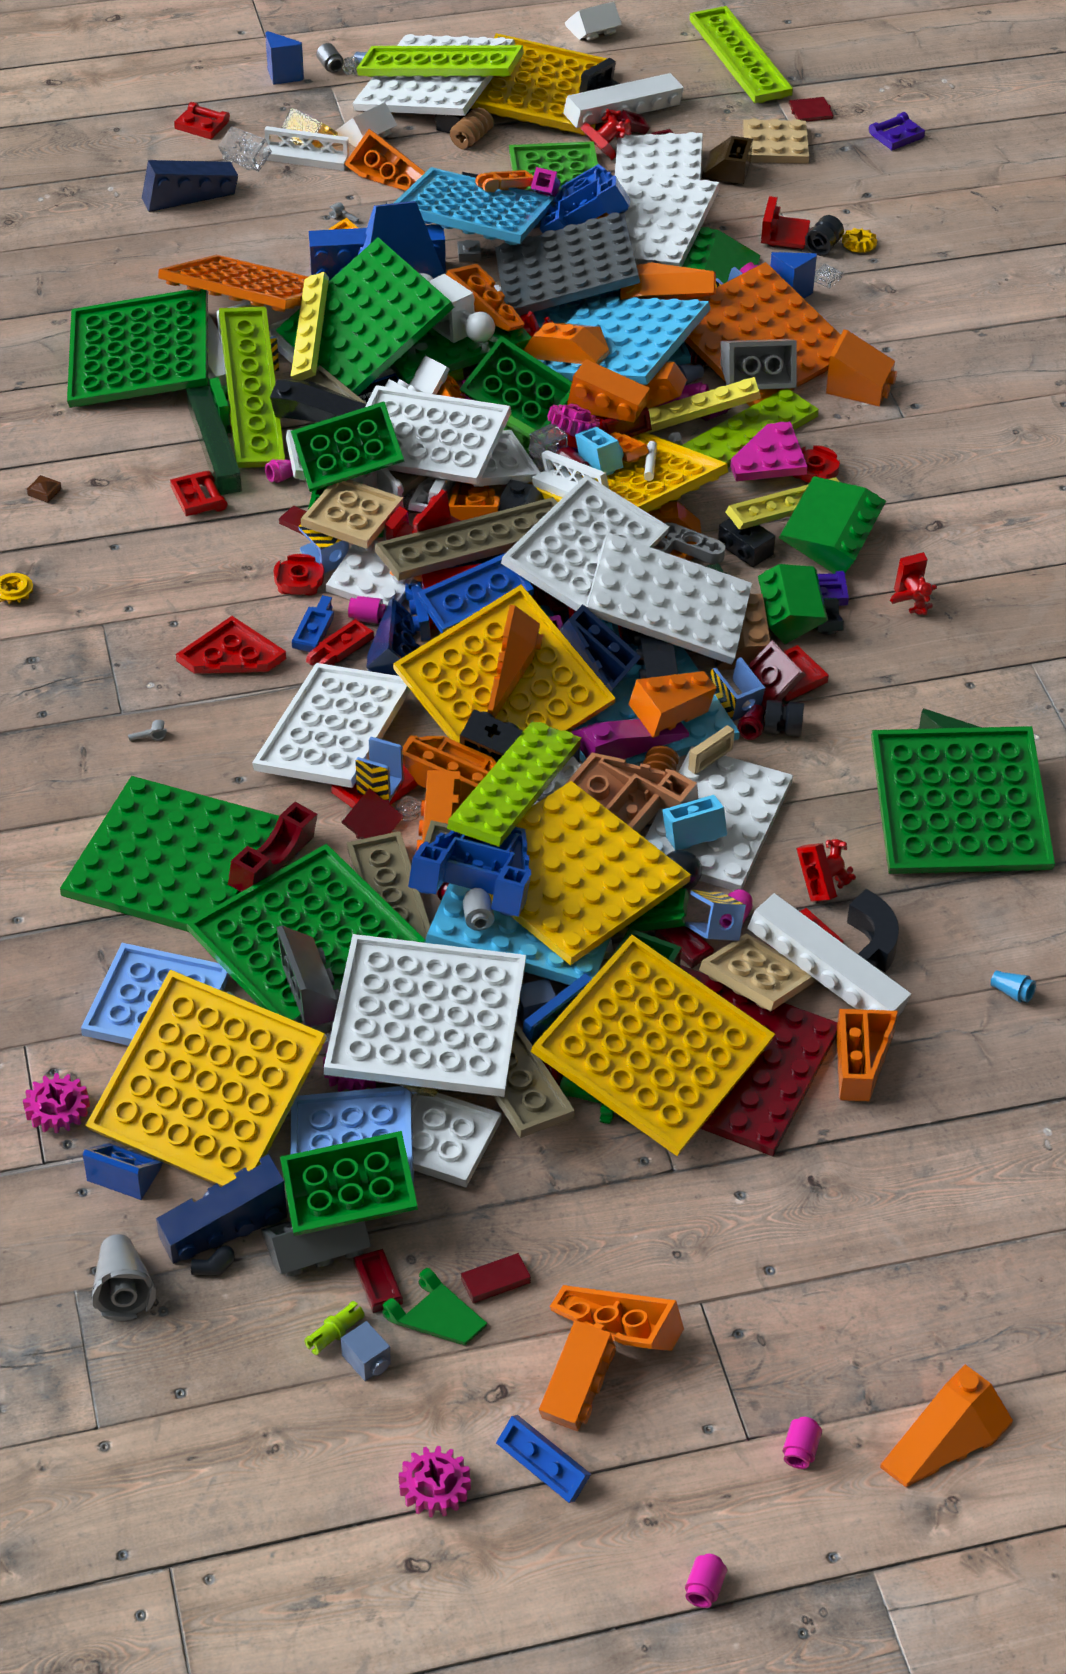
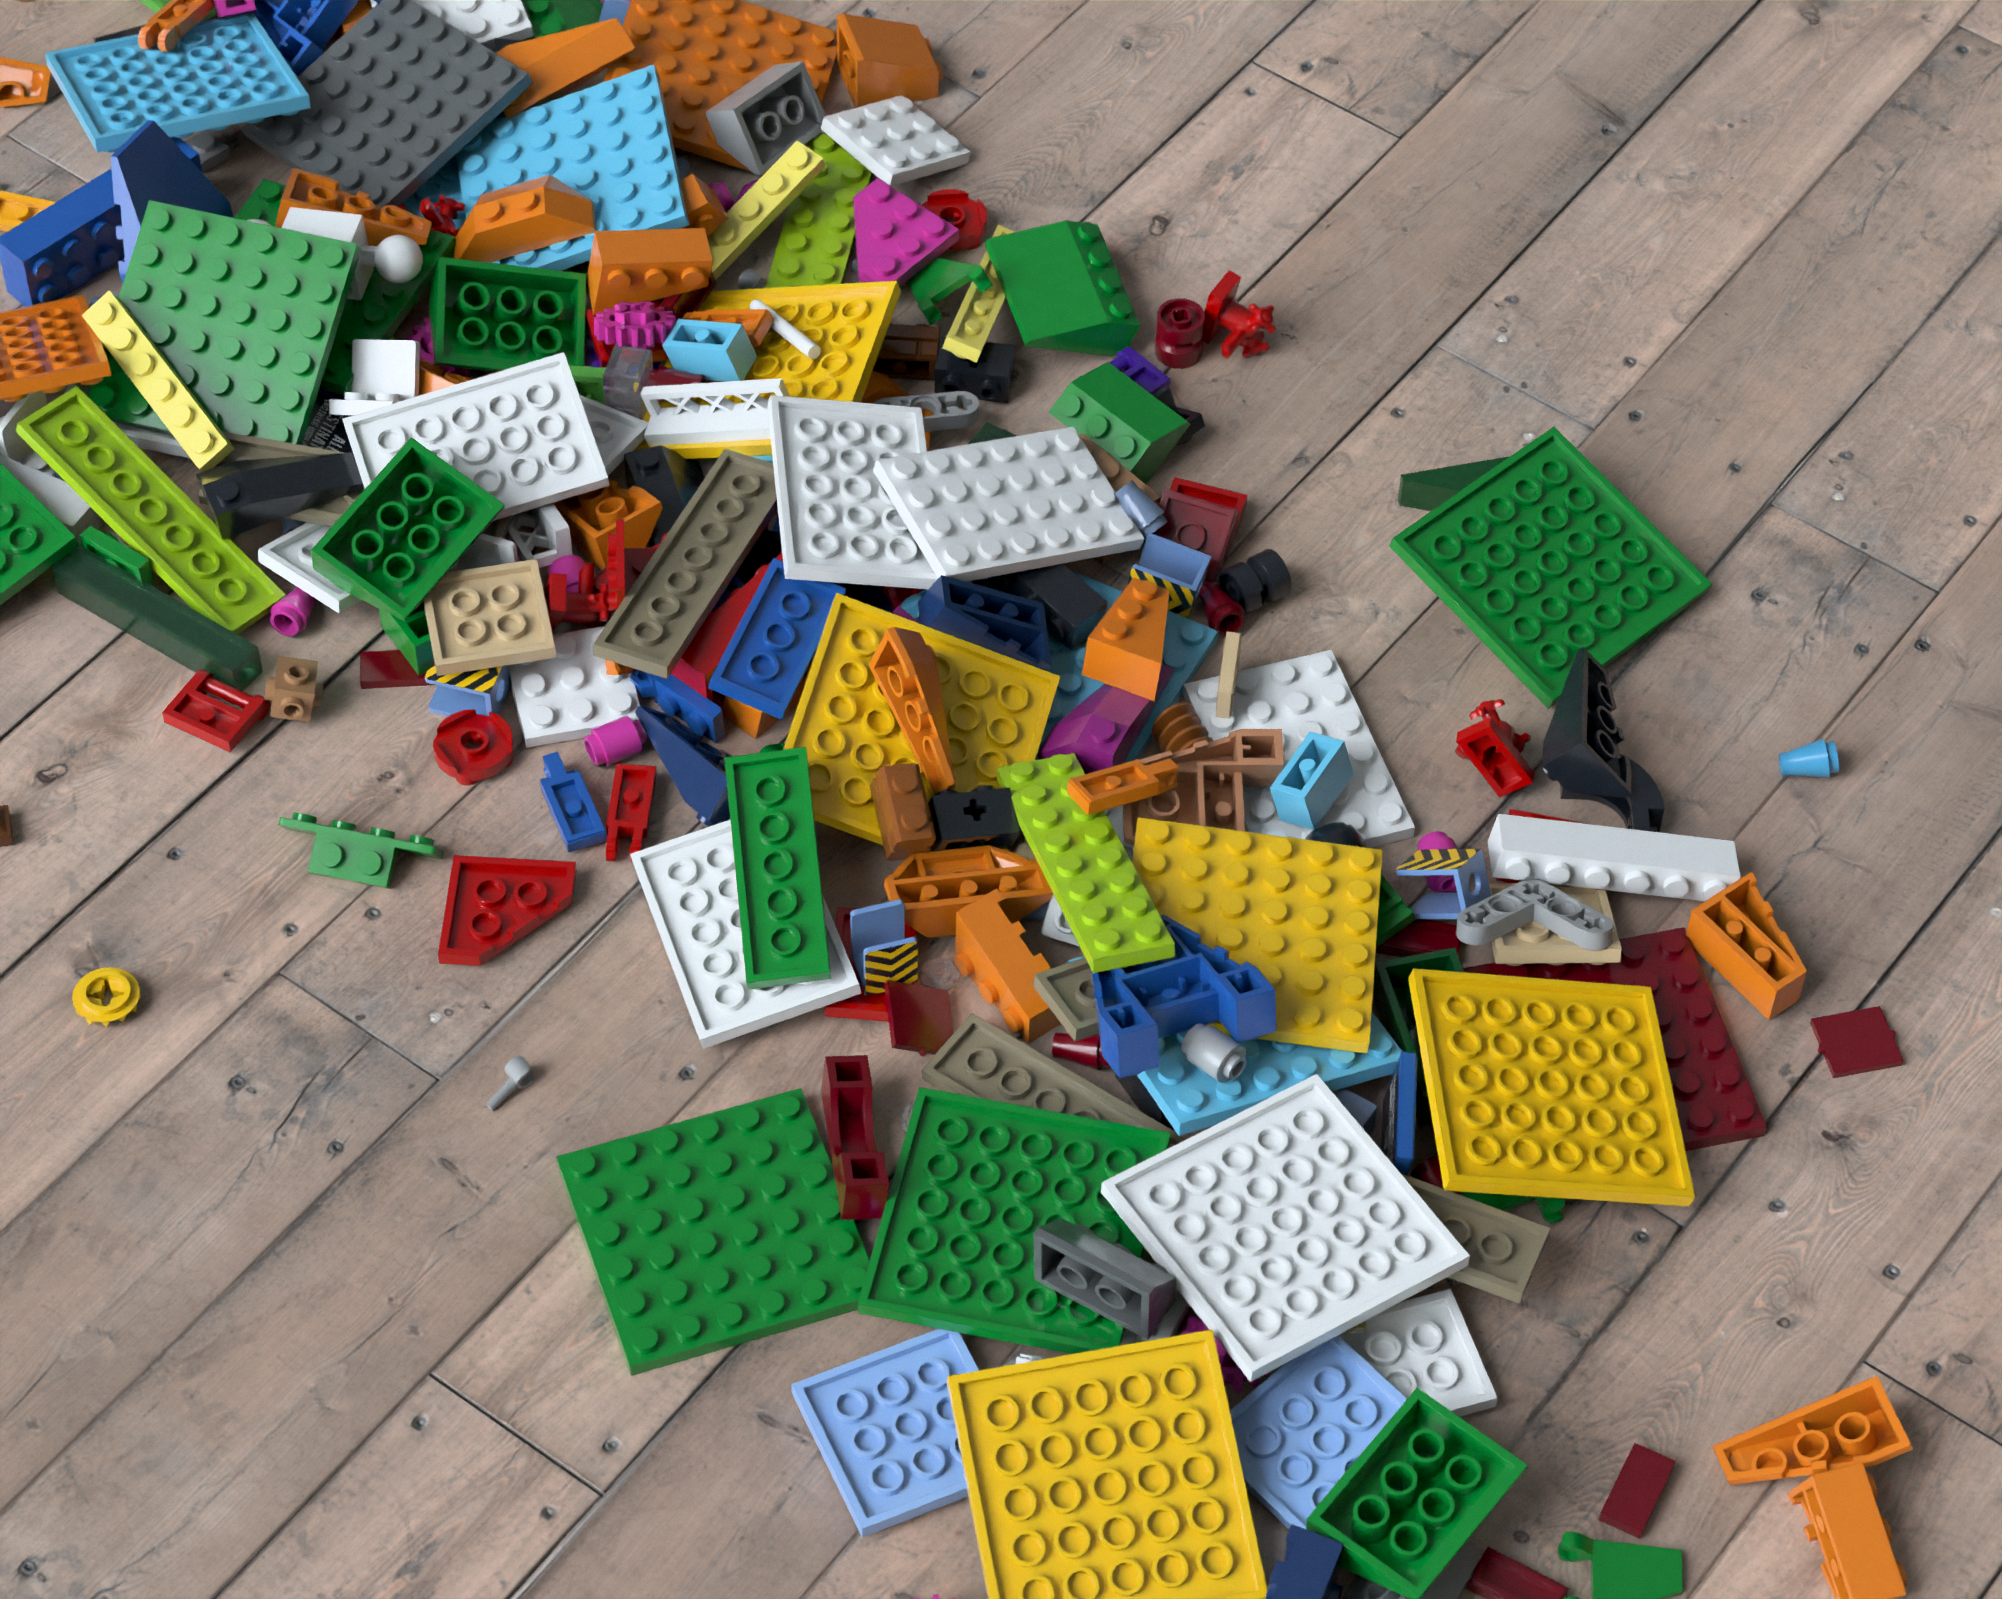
camera: 40 degrees left, 5 degrees up
(188, 591) = (354, 855): none -> bracket
(239, 501) = (294, 689): none -> medium nougat brick
(360, 698) = (777, 868): none -> green plate
(454, 709) = (902, 811): none -> dark orange brick
(576, 758) = (1122, 784): none -> orange hinge
(710, 506) = (909, 352): none -> reddish brown brick
(747, 643) = (1140, 508): none -> sand blue cone
(754, 952) = (1535, 902): none -> light grey beam
(766, 486) = (941, 279): none -> green flag
(825, 411) = (895, 140): none -> white plate
(876, 890) = (1583, 737): none -> black wedge
(878, 578) = (1179, 333): none -> dark red wheel
(881, 1143) = (1856, 1042): none -> dark red piece

